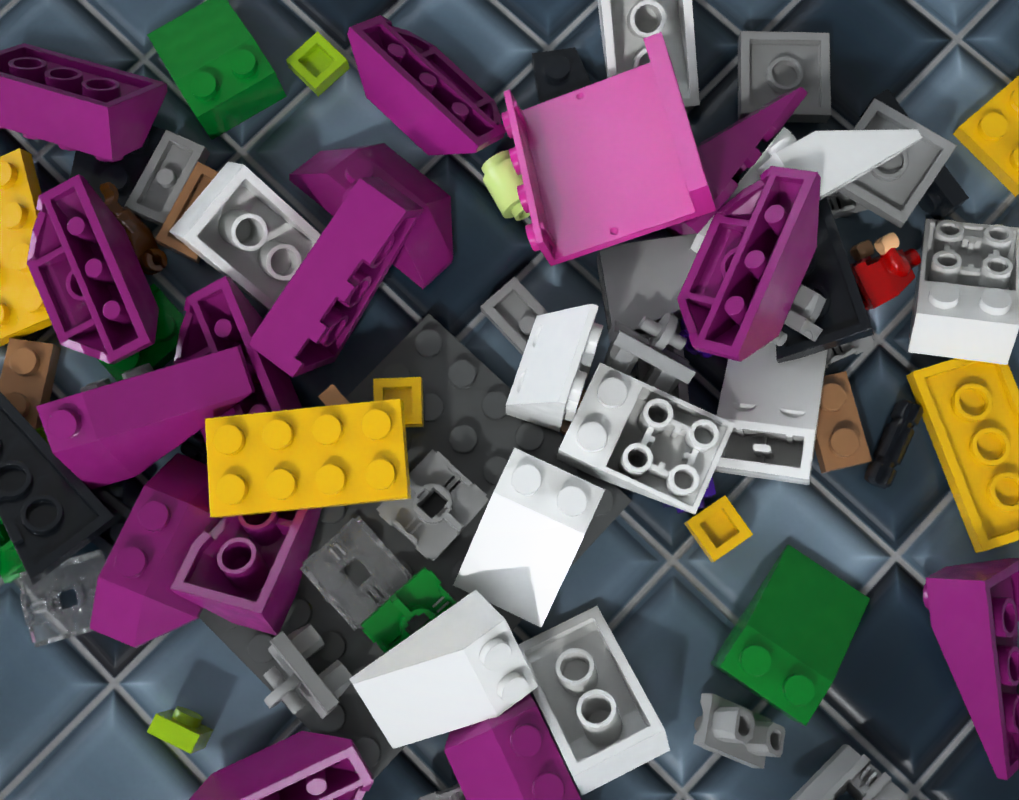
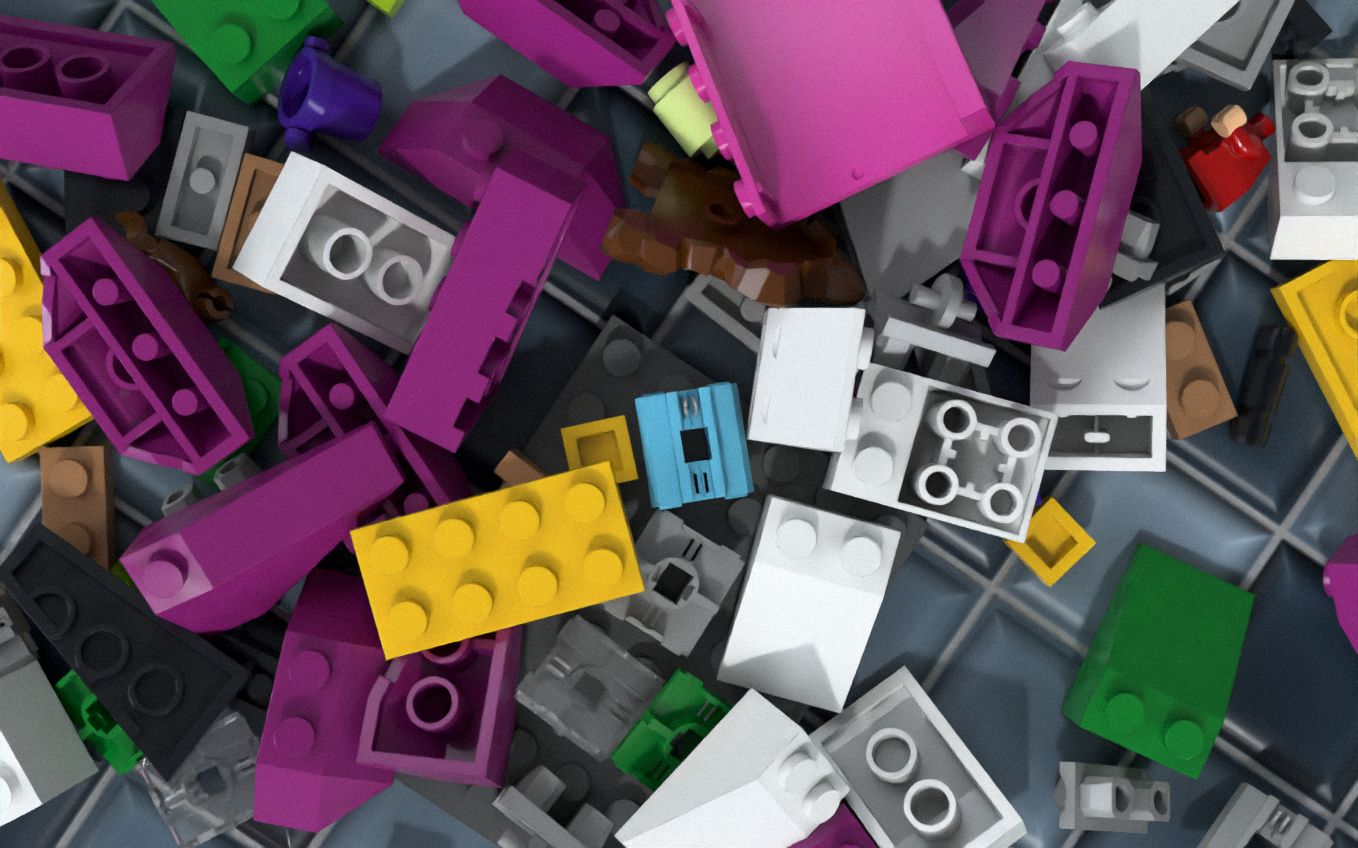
camera: 15 degrees left, 10 degrees up
(260, 135) = (325, 98): none -> dark purple piece
(467, 384) = (728, 465): none -> medium azure piece
(506, 262) = (705, 230): none -> reddish brown shield

